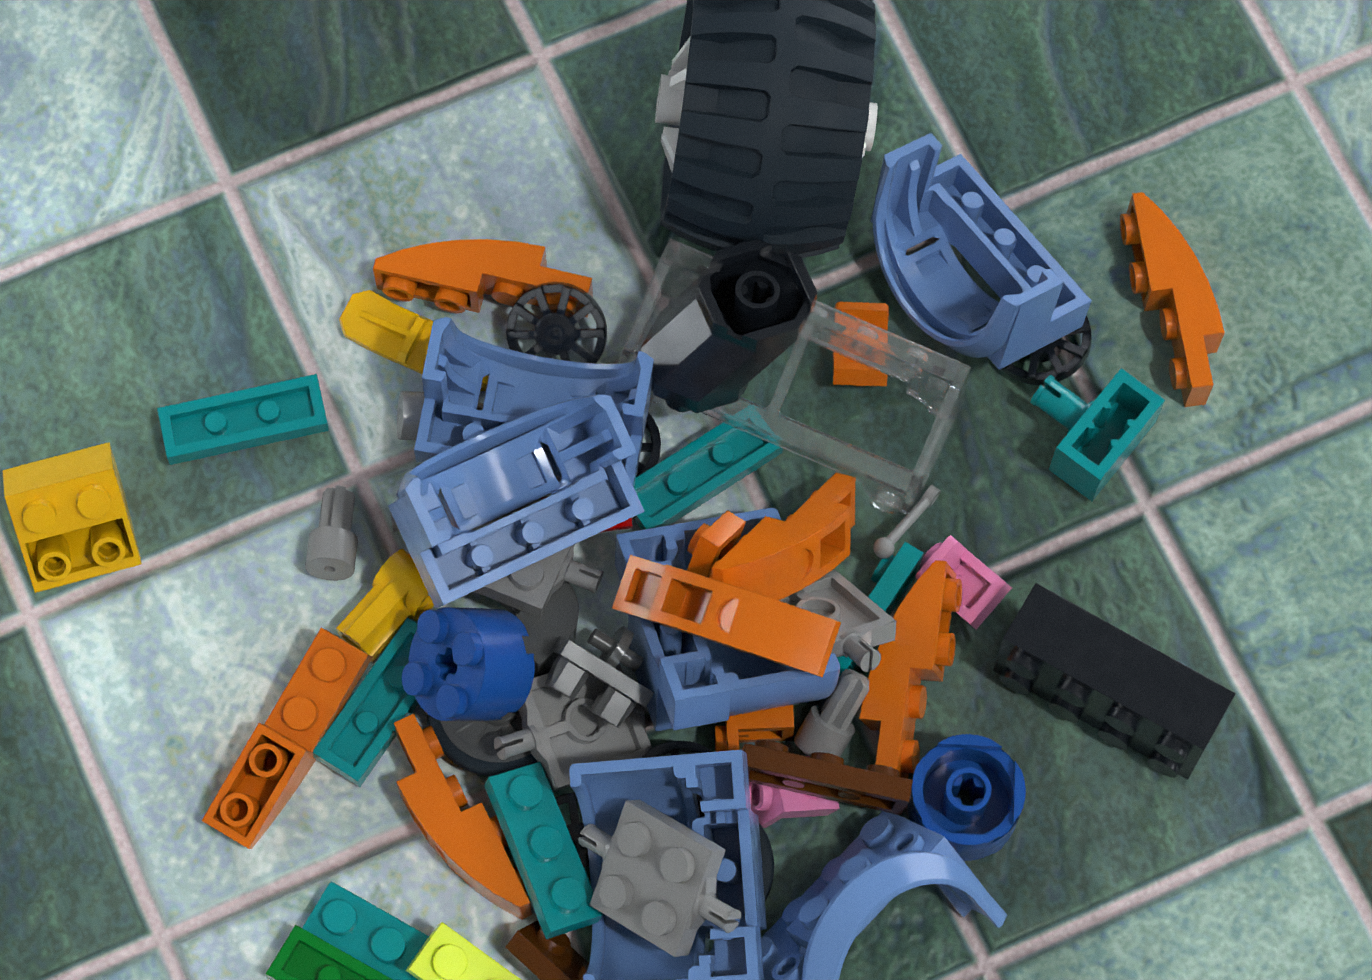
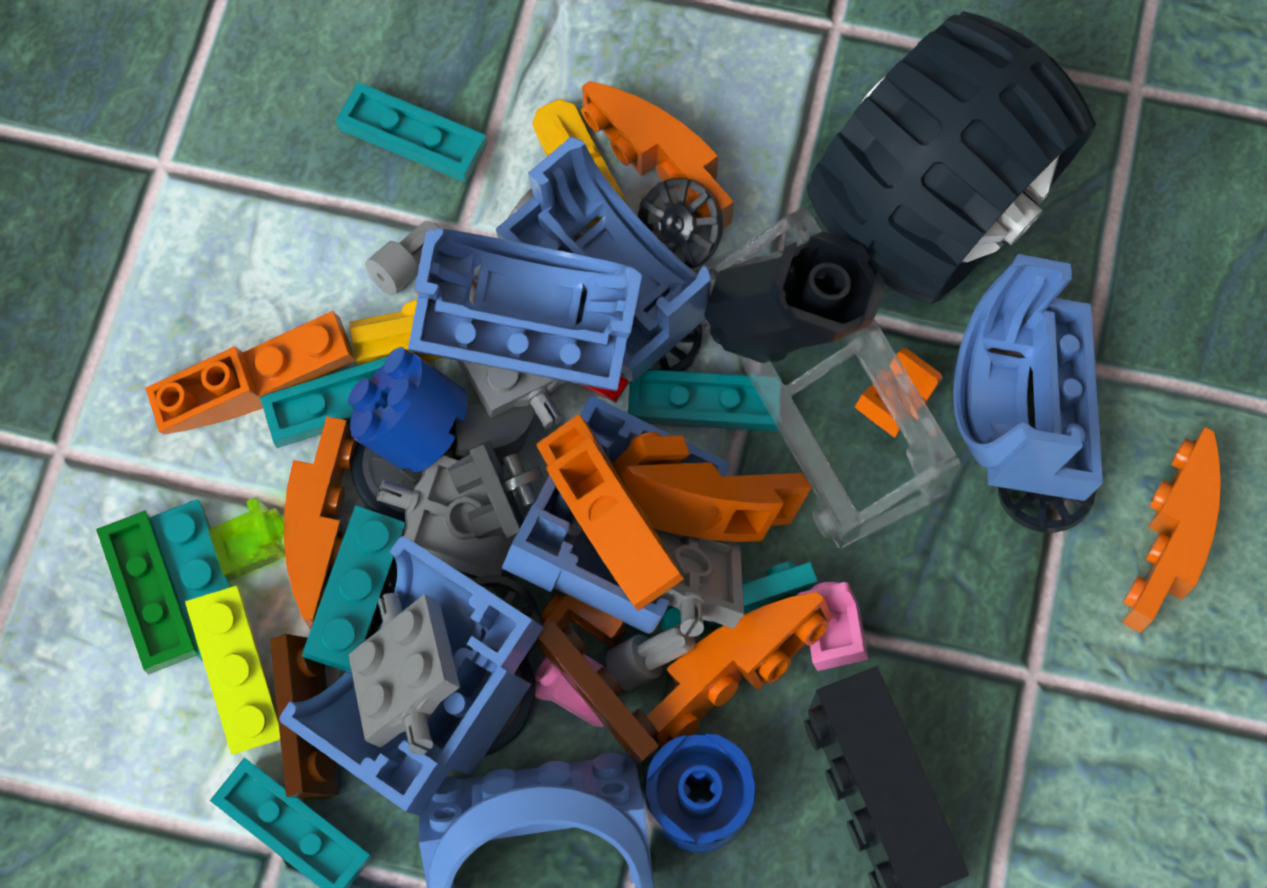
camera: 40 degrees right, 0 degrees up
(71, 517) = (238, 115): yellow slope -> none
(410, 880) = (248, 540): none -> clear neon green bracket
(884, 546) = (791, 554): light grey hinge -> none
(1099, 431) = (1034, 591): teal brick -> none

